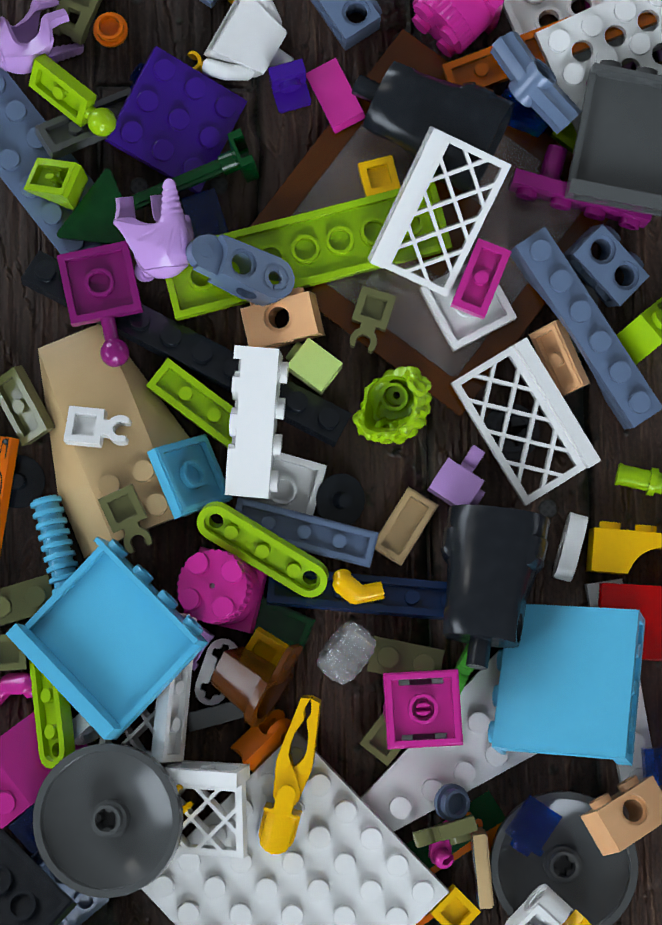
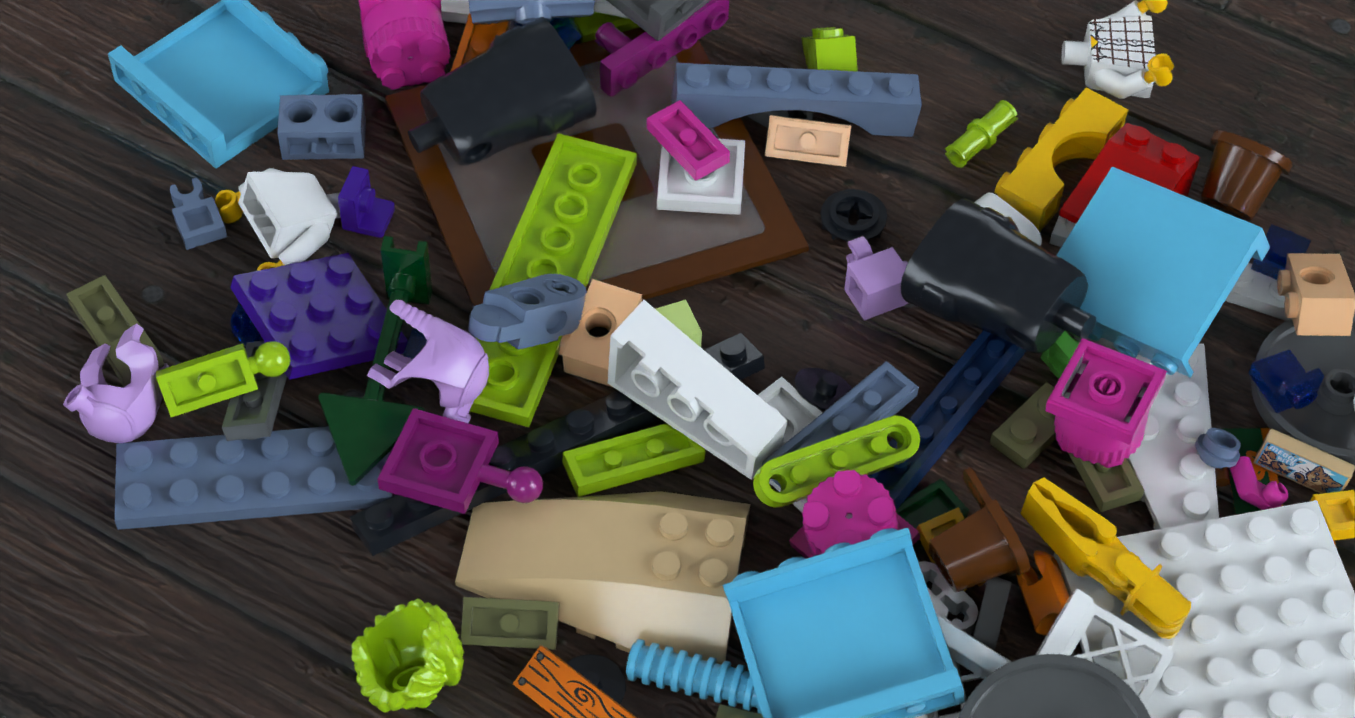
camera: 55 degrees left, 30 degrees down
(57, 181) = (297, 441): lime slope -> none
(90, 426) = (593, 545): white plate -> none
(110, 29) = (171, 329): orange plate -> none
(124, 512) = (709, 556): olive plate -> none
(188, 475) = (707, 496): medium azure tile -> none
(335, 95) = (408, 176): dark pink tile -> none
(346, 652) = (998, 455): clear gear -> none
(353, 590) = (934, 412): yellow arm -> none
(372, 313) = (653, 252): olive plate -> none
(378, 175) = (516, 178): yellow plate -> none
(394, 418) = (770, 272): lime hair -> none
(405, 526) = (883, 341): tan tile -> none
(409, 199) = (567, 137): white fence -> none
(456, 831) = (1252, 454): olive plate -> none
(552, 406) = (851, 164): white fence -> none
(601, 272) = (744, 47): sand blue brick -> none

